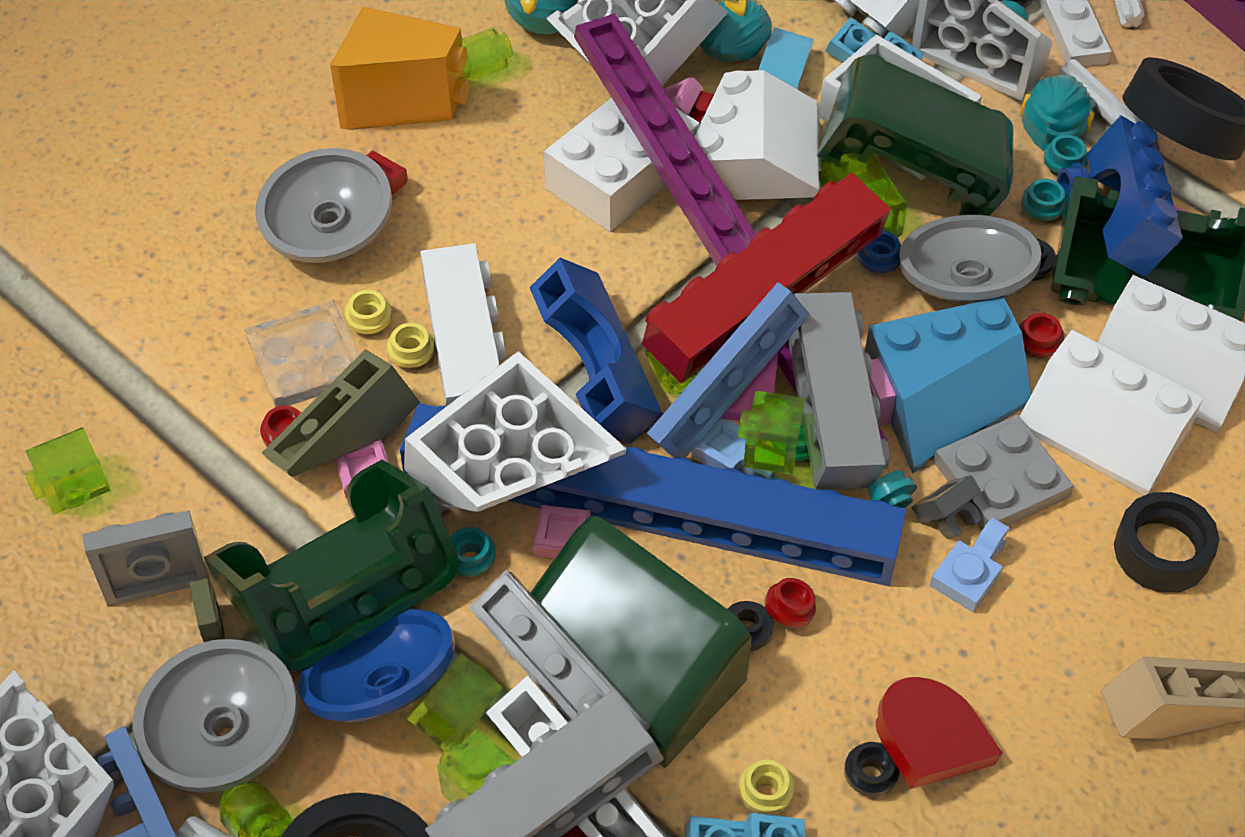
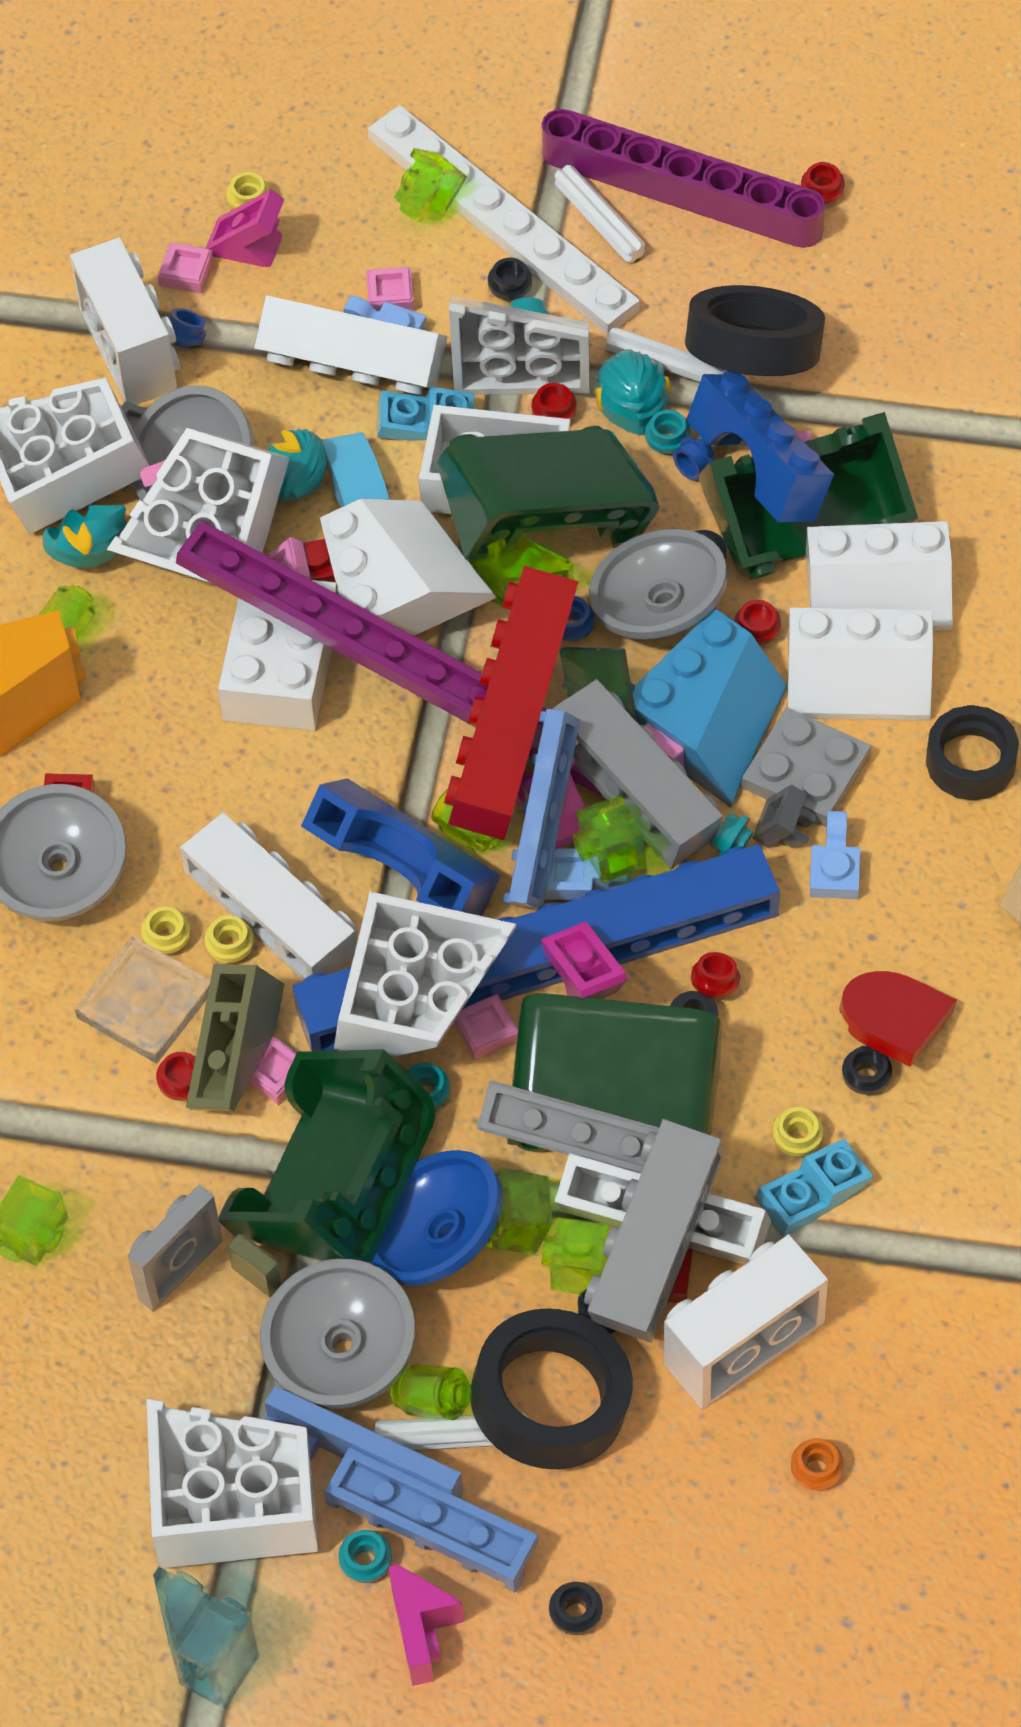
camera: 30 degrees left, 5 degrees up
(667, 520) = (584, 962): none -> dark pink slope
(868, 296) = (606, 665): none -> clear green piece
(989, 87) = (554, 401): none -> red plate
(1044, 200) = (677, 478): teal plate -> none

